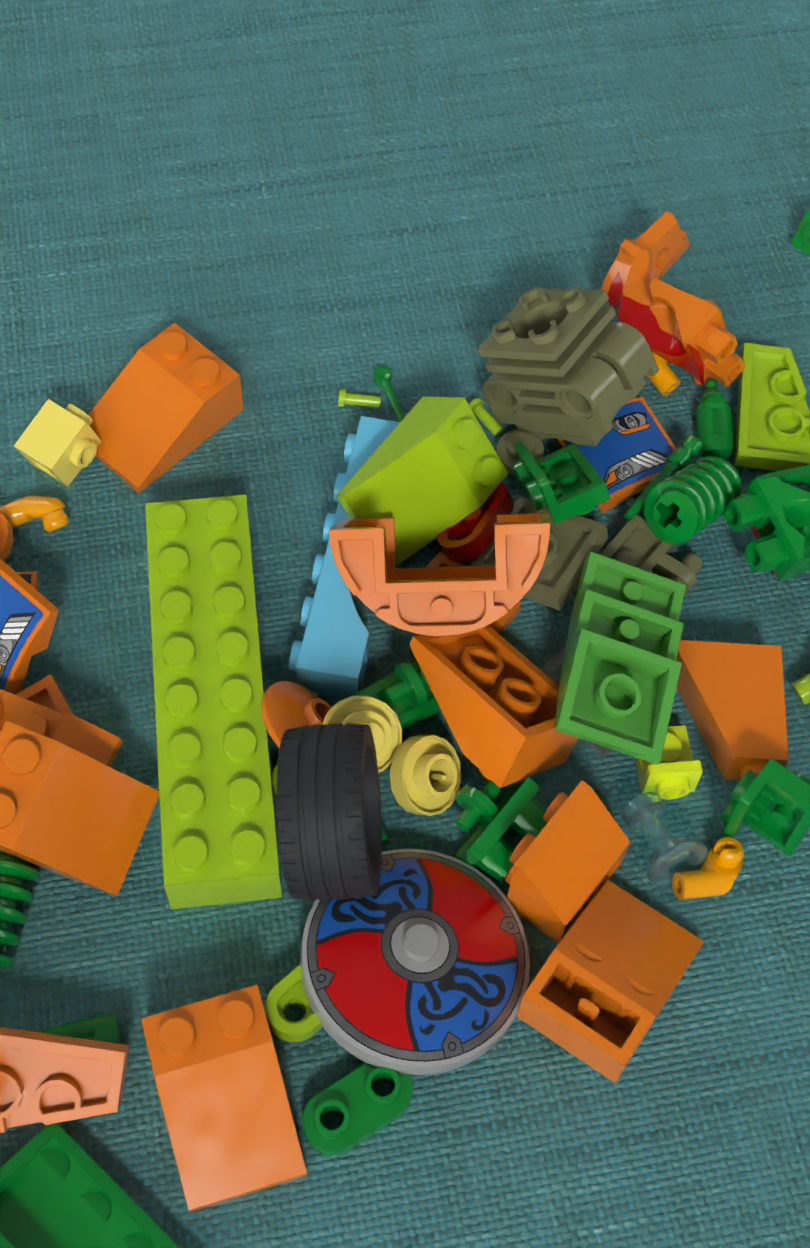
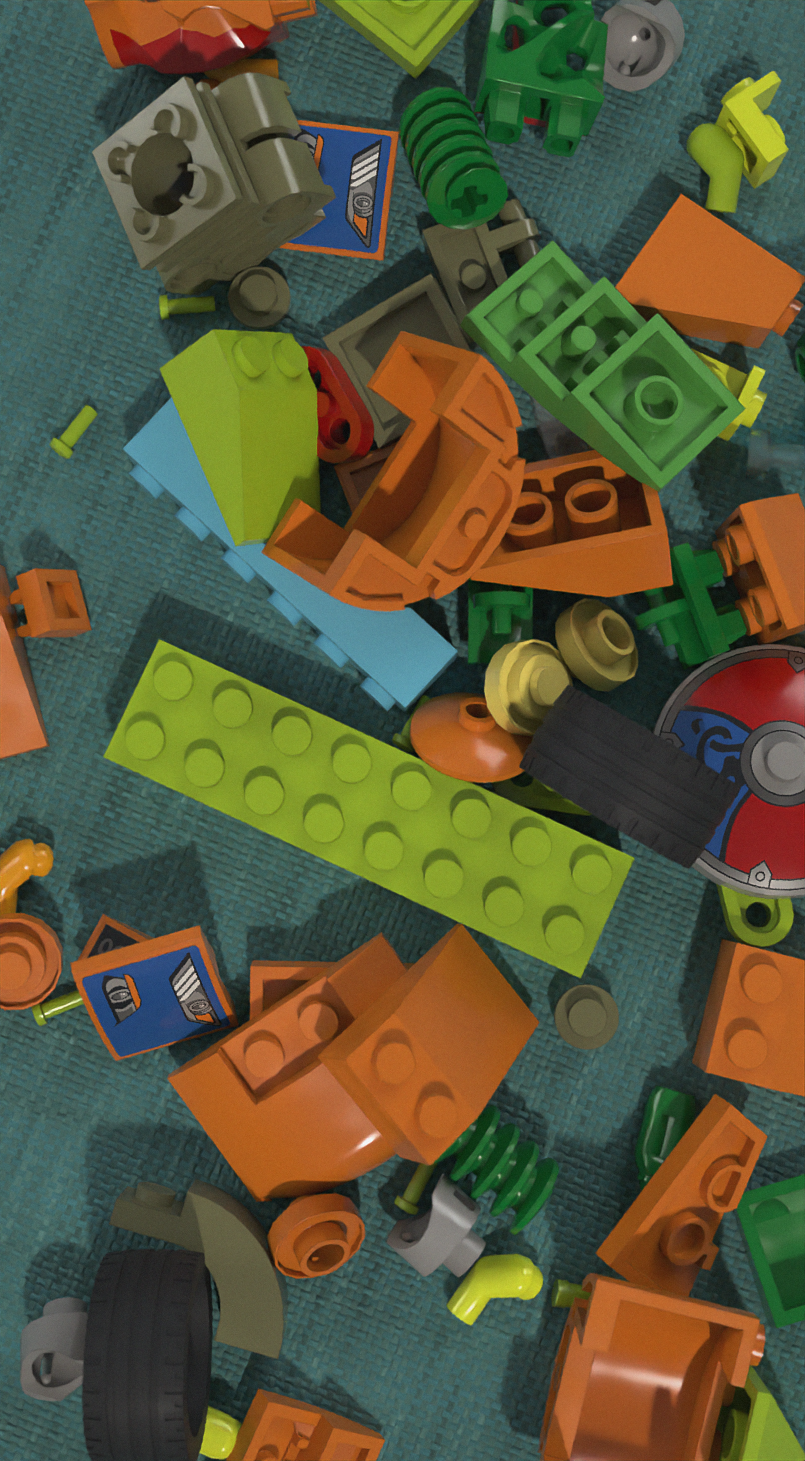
camera: 55 degrees left, 25 degrees up
(141, 929) = (586, 1016): none -> olive plate
(234, 438) = (51, 603): none -> orange tile
(382, 377) = (59, 386): green hinge -> none
(560, 482) = (349, 283): green bracket -> none
(676, 461) = (392, 143): green piece -> none
(714, 423) = (350, 61): green piece -> none

